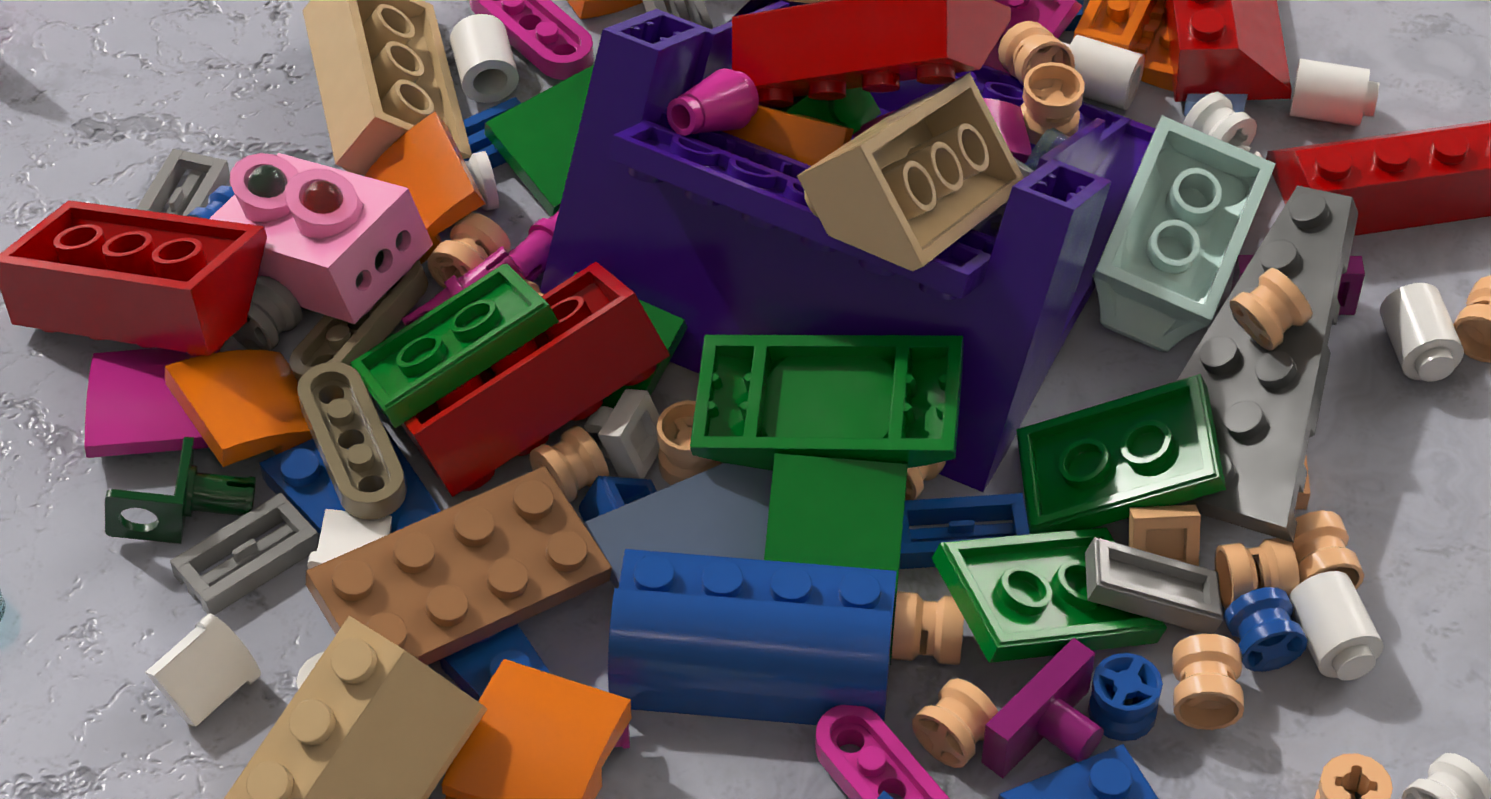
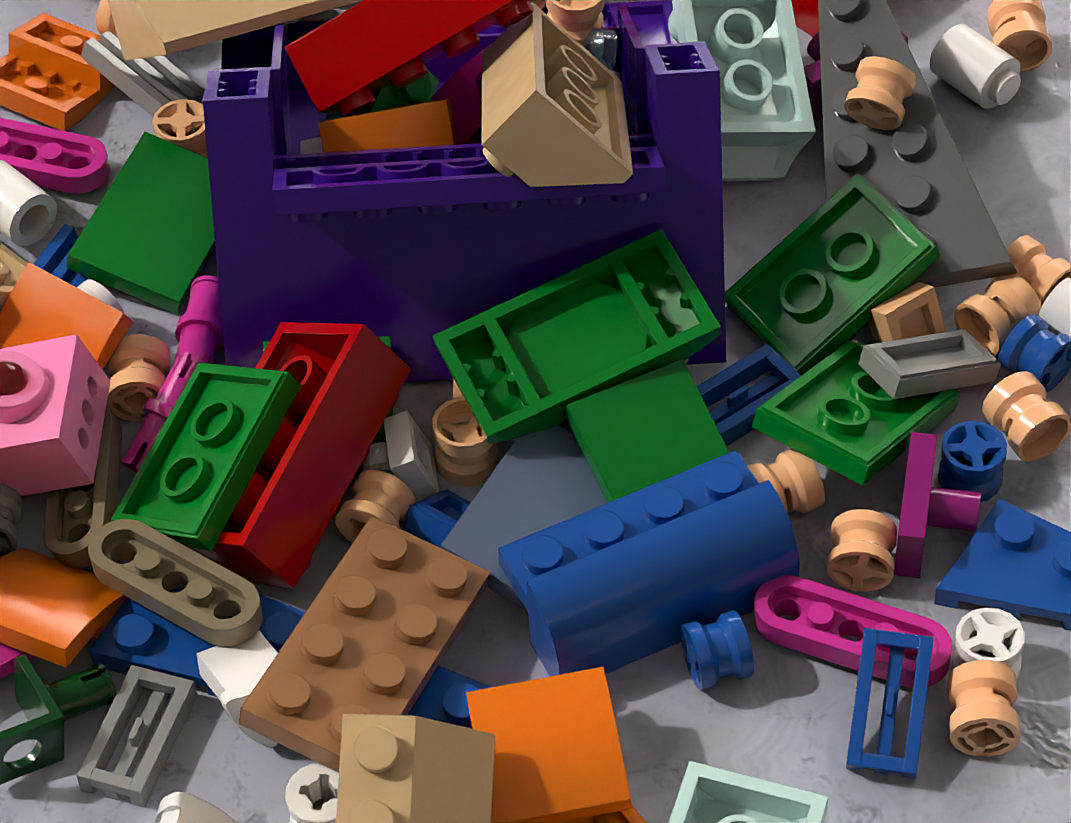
camera: 30 degrees left, 0 degrees up
(715, 104) = (325, 127): dark pink cone -> none
(757, 741) = (717, 650): none -> blue wheel

